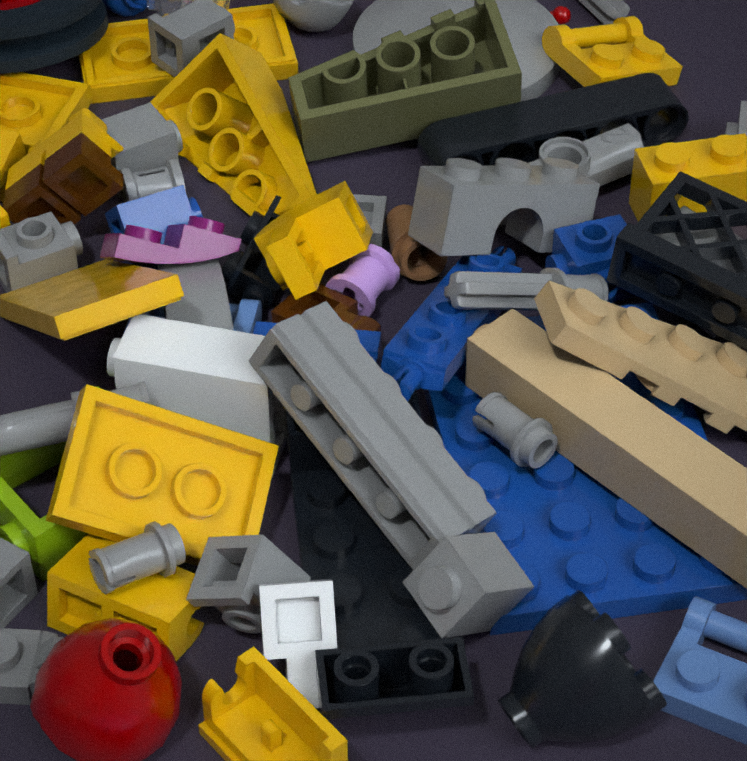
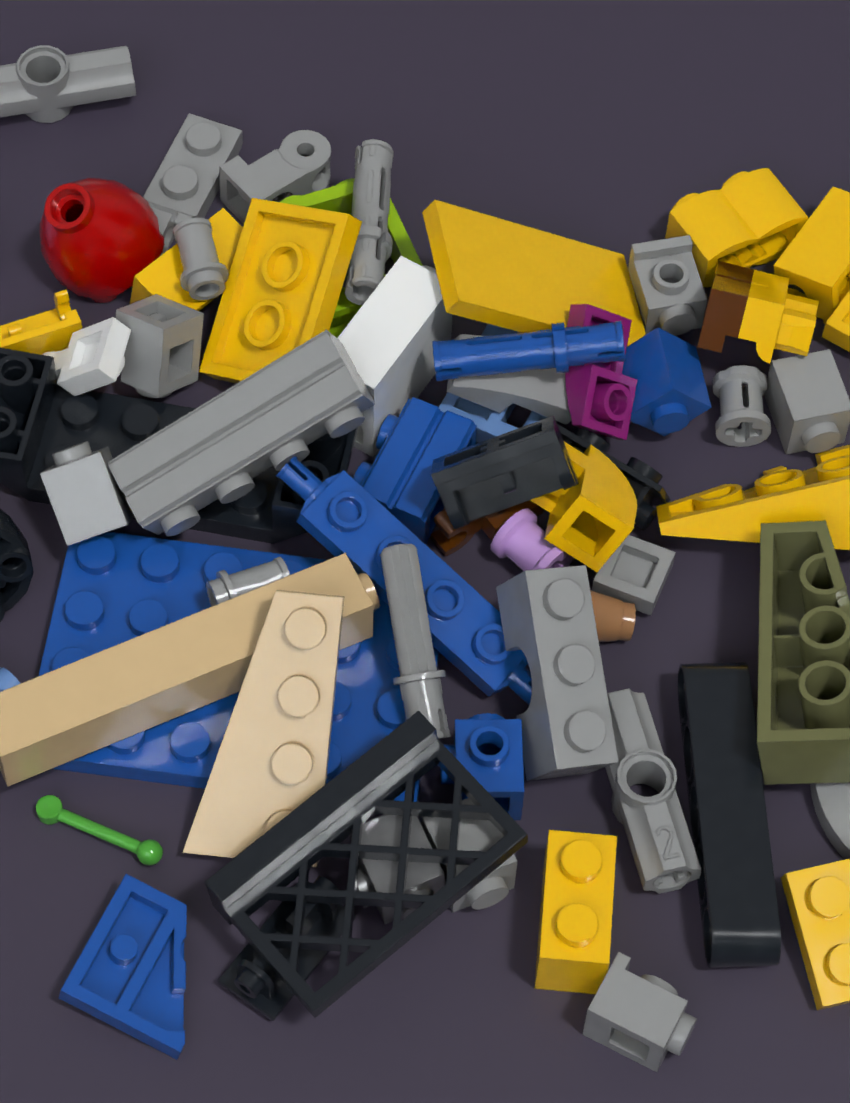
camera: 105 degrees right, 15 degrees up
(169, 214) = (520, 352): none -> blue pin
(330, 249) = (503, 472): none -> black hinge

